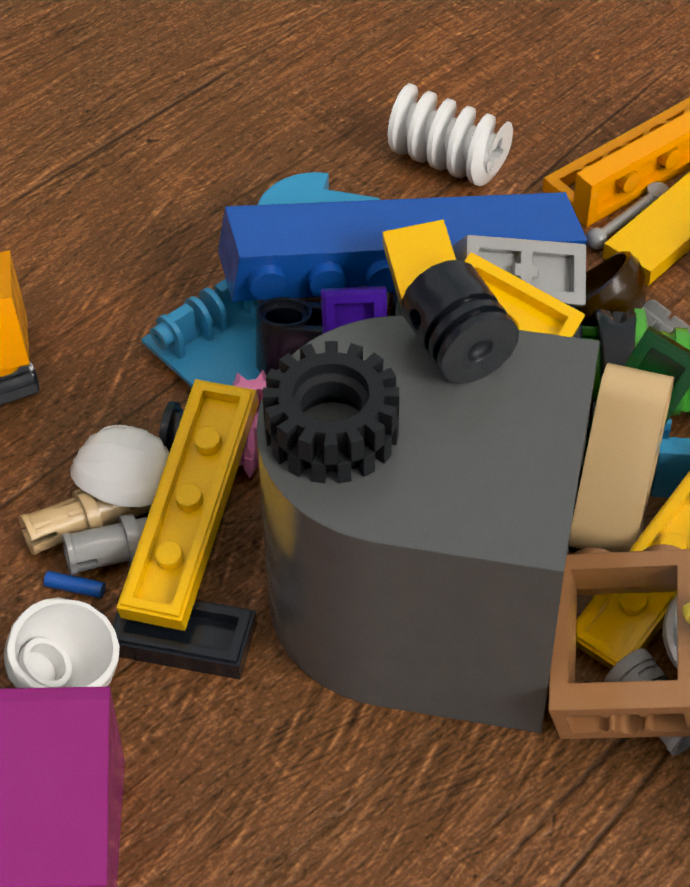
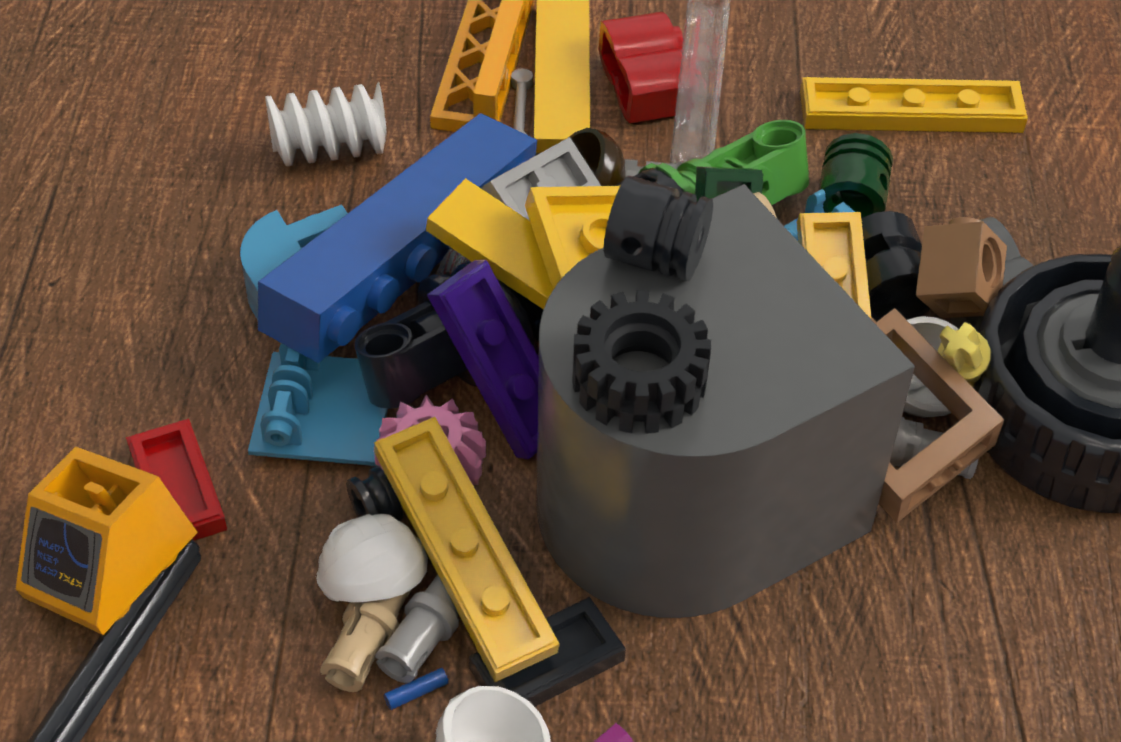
camera: 45 degrees left, 0 degrees up
(76, 329) = (177, 460): none -> red tile

